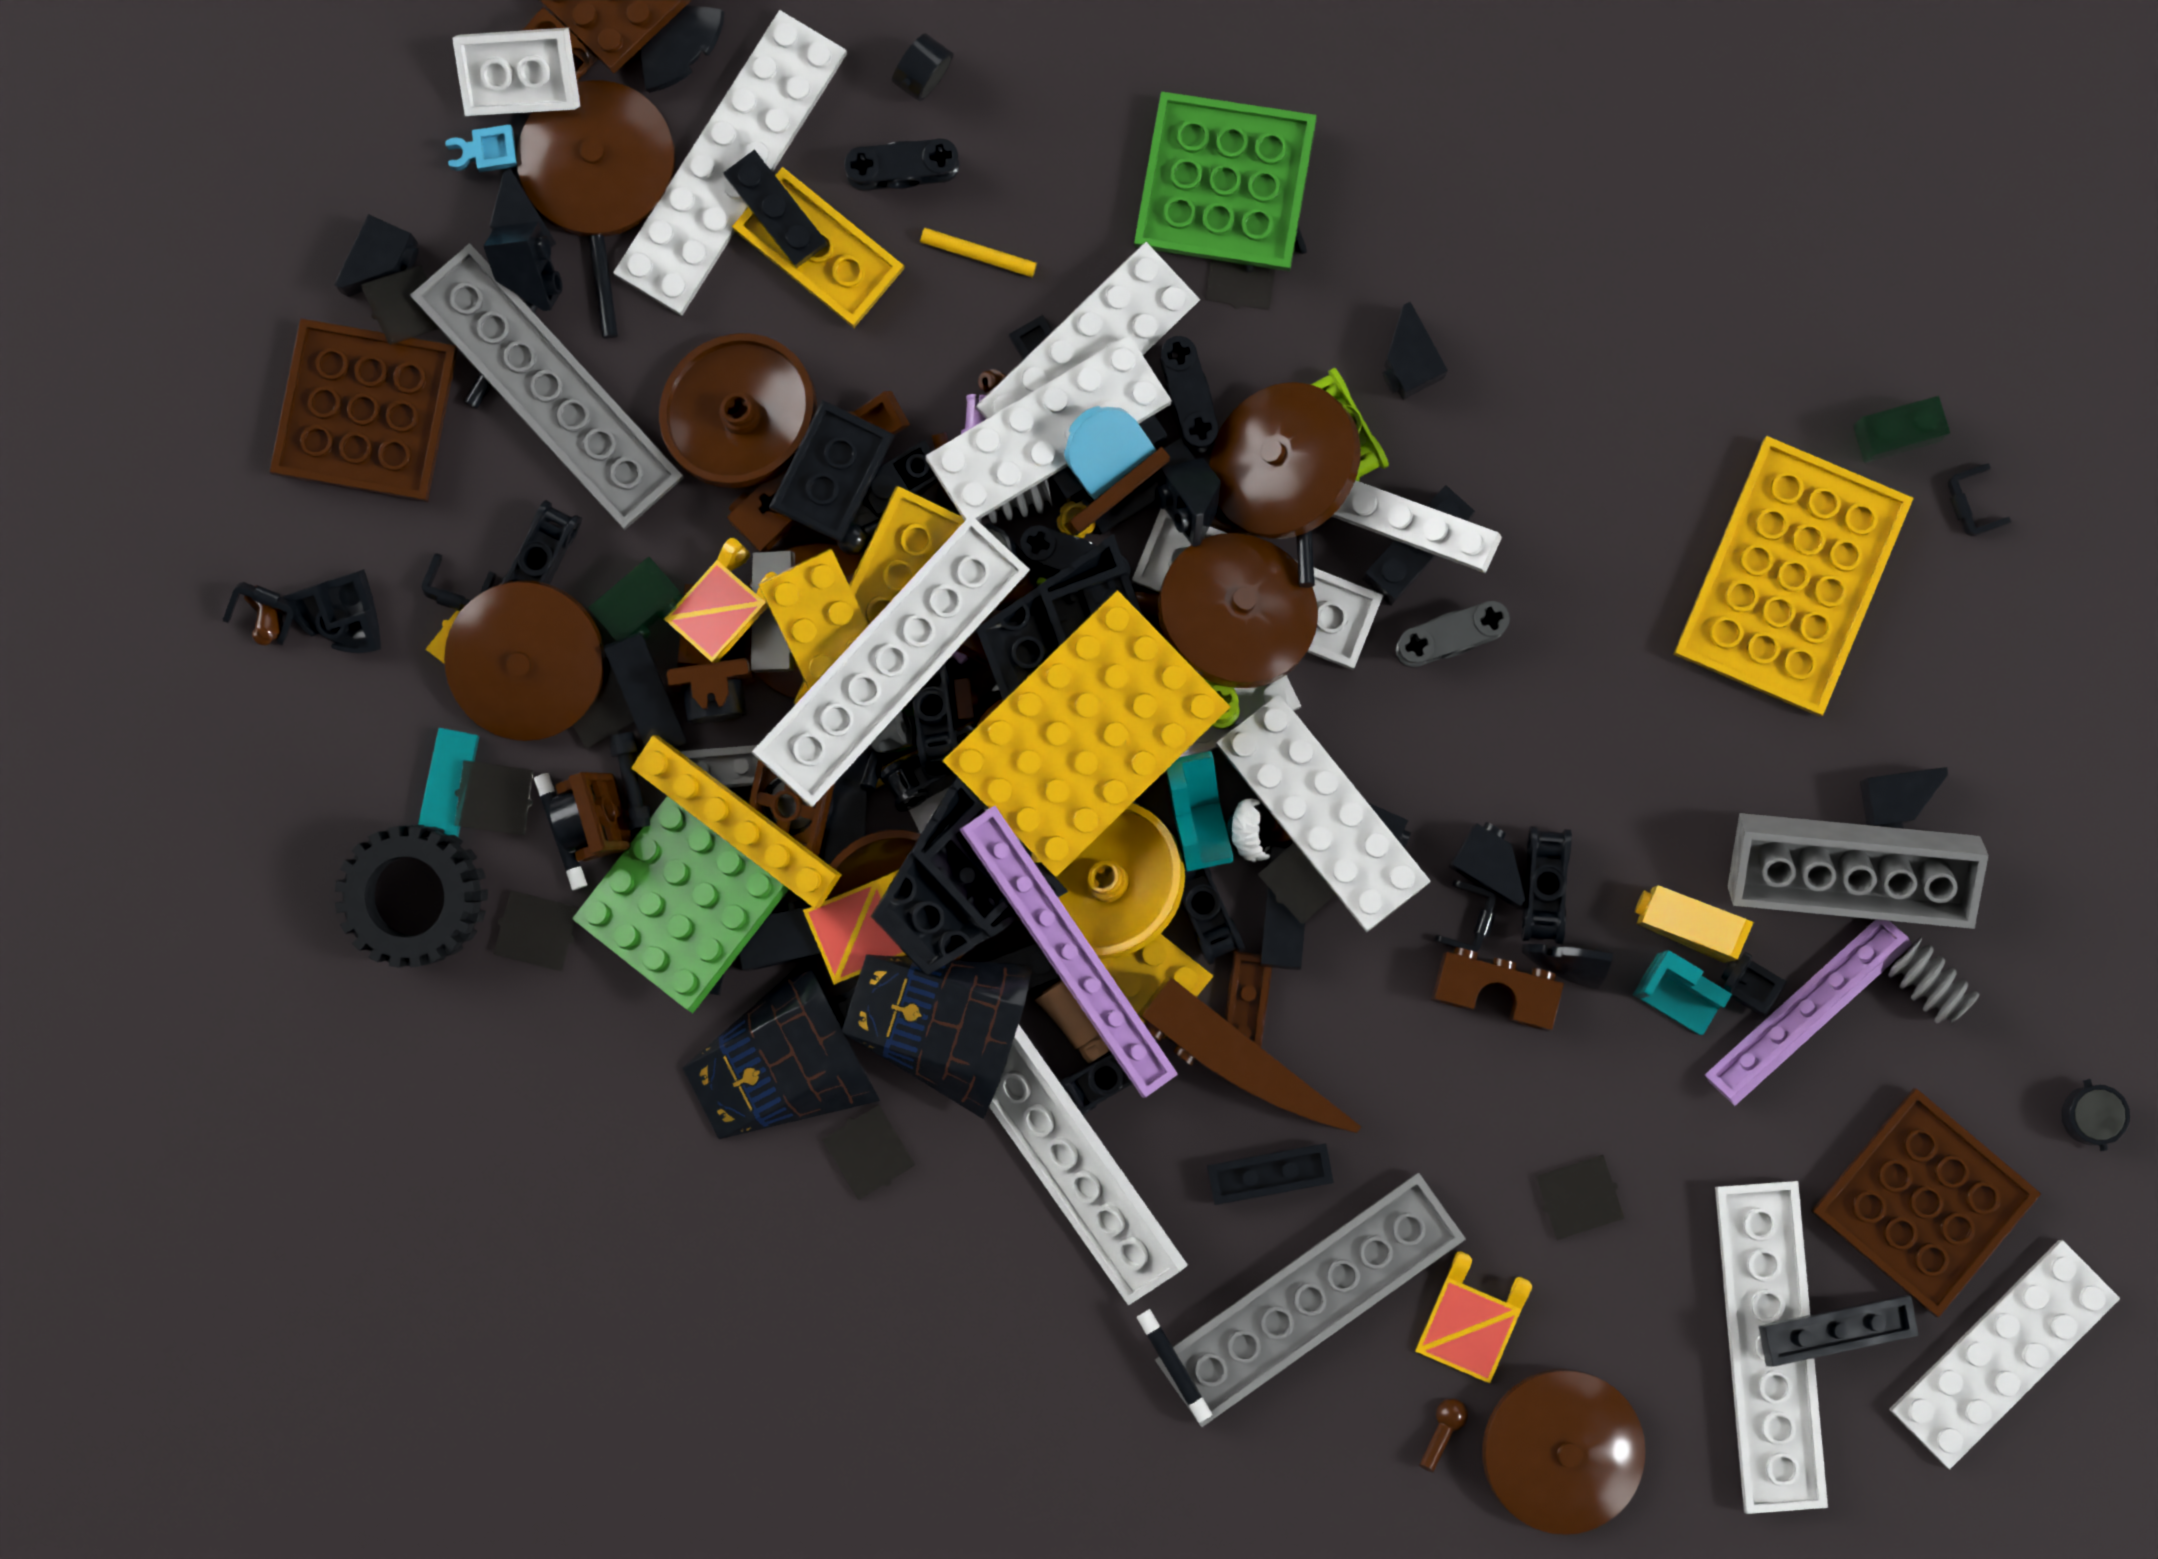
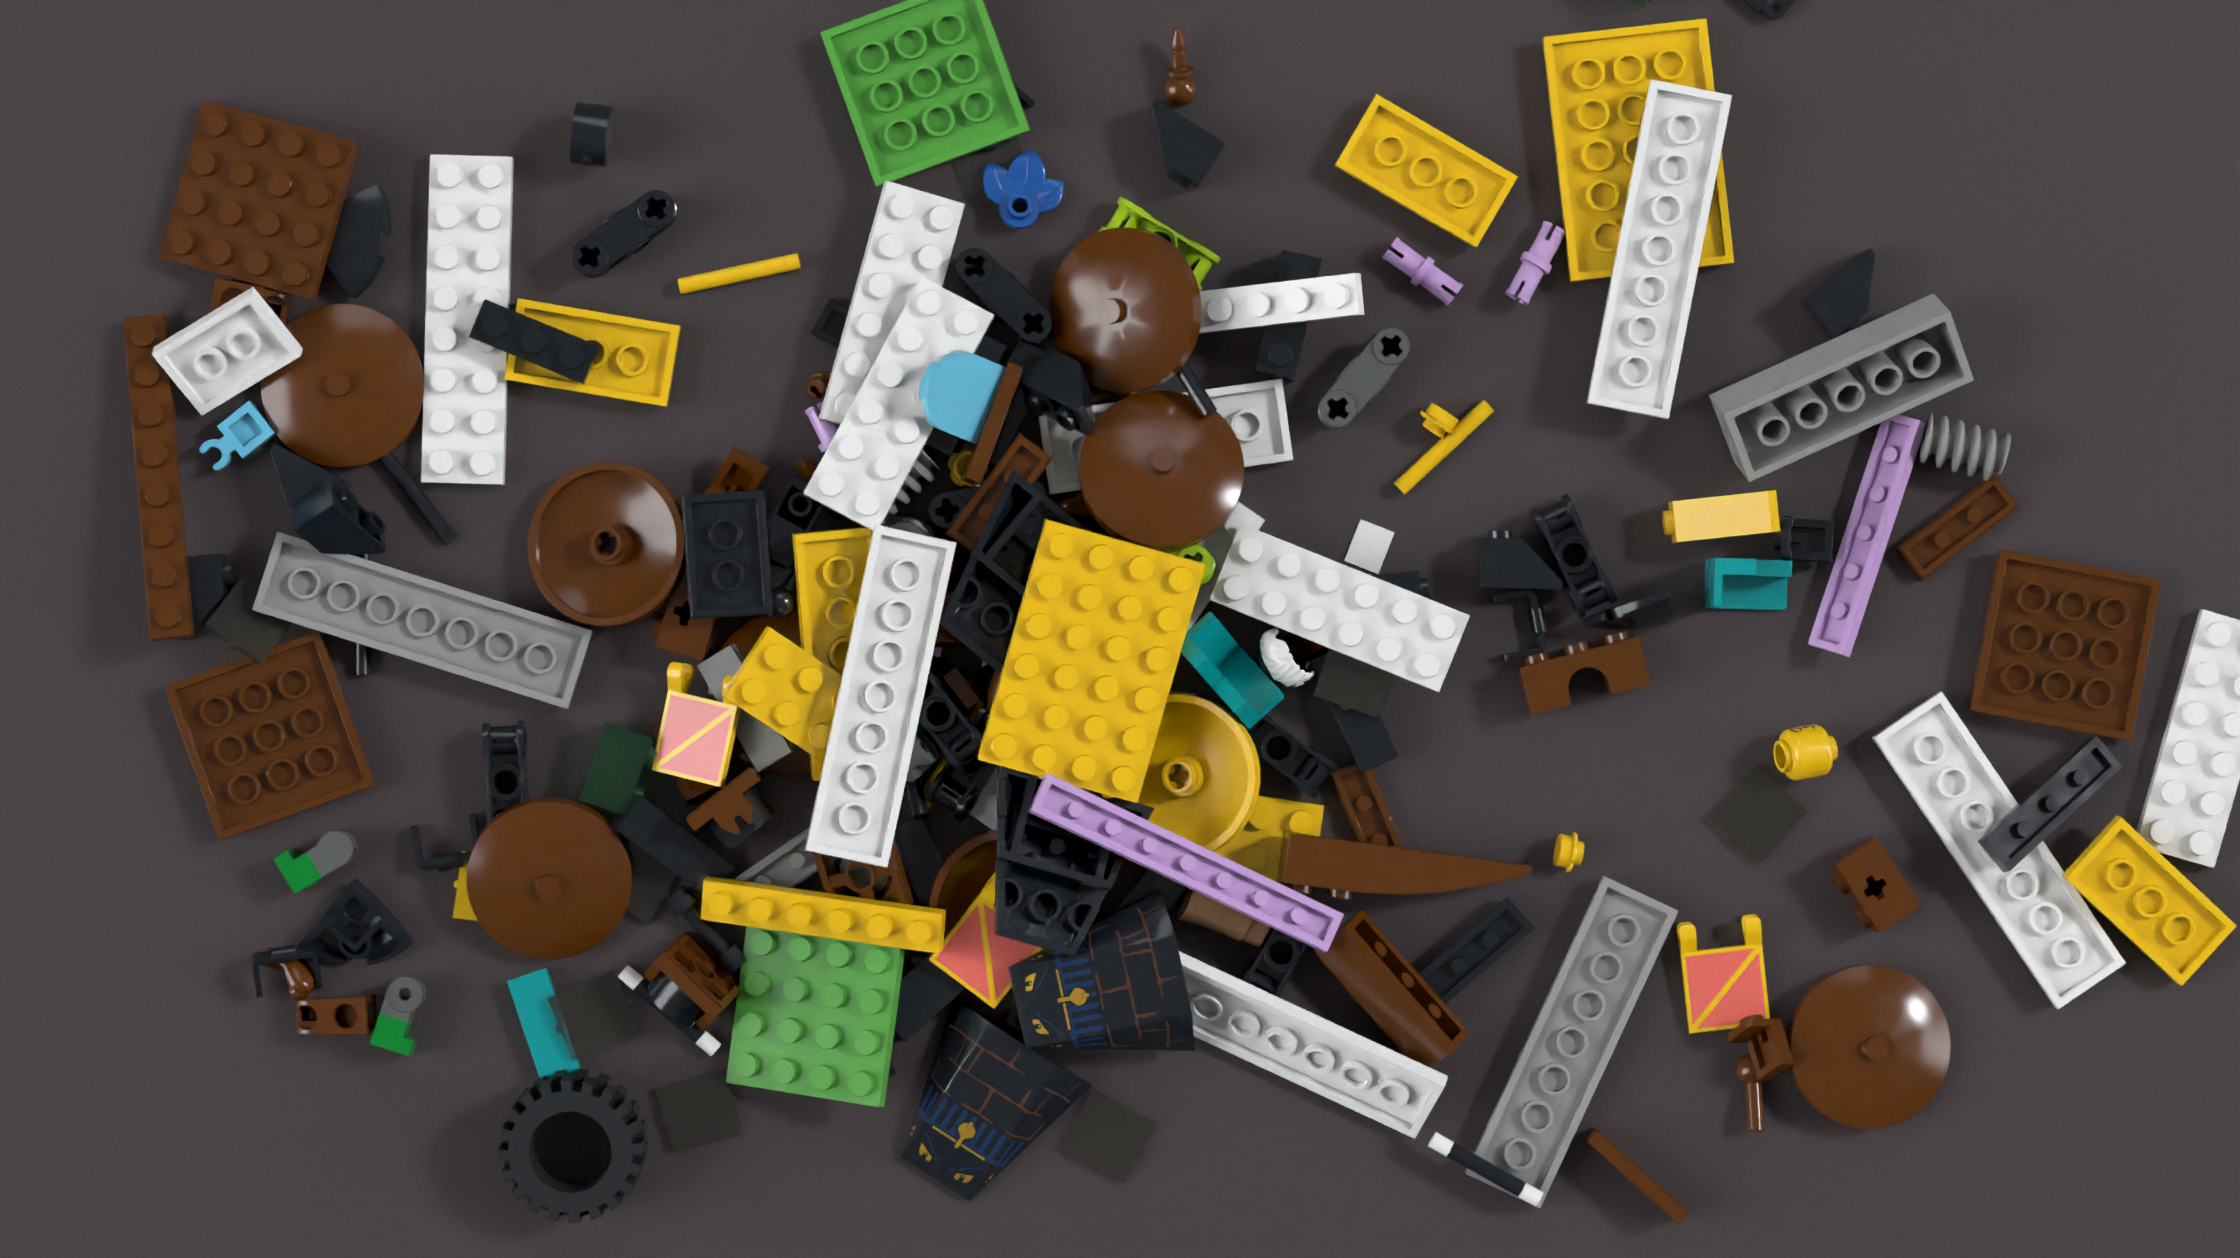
camera: 30 degrees left, 5 degrees up
(280, 674) = (336, 1015): none -> reddish brown leg
(330, 701) = (396, 1015): none -> leg
(351, 537) = (329, 855): none -> leg
(394, 148) = (158, 482): none -> reddish brown plate
(1127, 532) = (1023, 458): none -> reddish brown tile
(1180, 1166) = (1392, 992): none -> reddish brown brick
(1258, 312) = (1024, 184): none -> blue plate
(1301, 1447) = (1636, 1175): none -> reddish brown tile
(1376, 779) = (1369, 546): none -> white sticker
(1399, 1134) = (1568, 851): none -> yellow plate
(1436, 307) = (1180, 87): none -> reddish brown bar
(1476, 1397) = (1765, 1043): none -> reddish brown bracket
(1487, 732) = (1443, 447): none -> yellow bar
(1496, 706) = (1439, 420): none -> yellow plate
(1553, 574) = (1422, 271): none -> lavender pin
(1603, 492) = (1426, 171): none -> yellow plate
(1651, 1165) = (1805, 752): none -> yellow head
(1653, 621) = (1535, 263): none -> lavender pin
(1660, 1332) = (1894, 897): none -> reddish brown brick
(1765, 666) = (1659, 249): none -> white plate
(1878, 1464) = (2149, 900): none -> yellow plate
(1888, 1049) = (1957, 527): none -> reddish brown tile
(2095, 1115) = (2171, 481): piece -> none

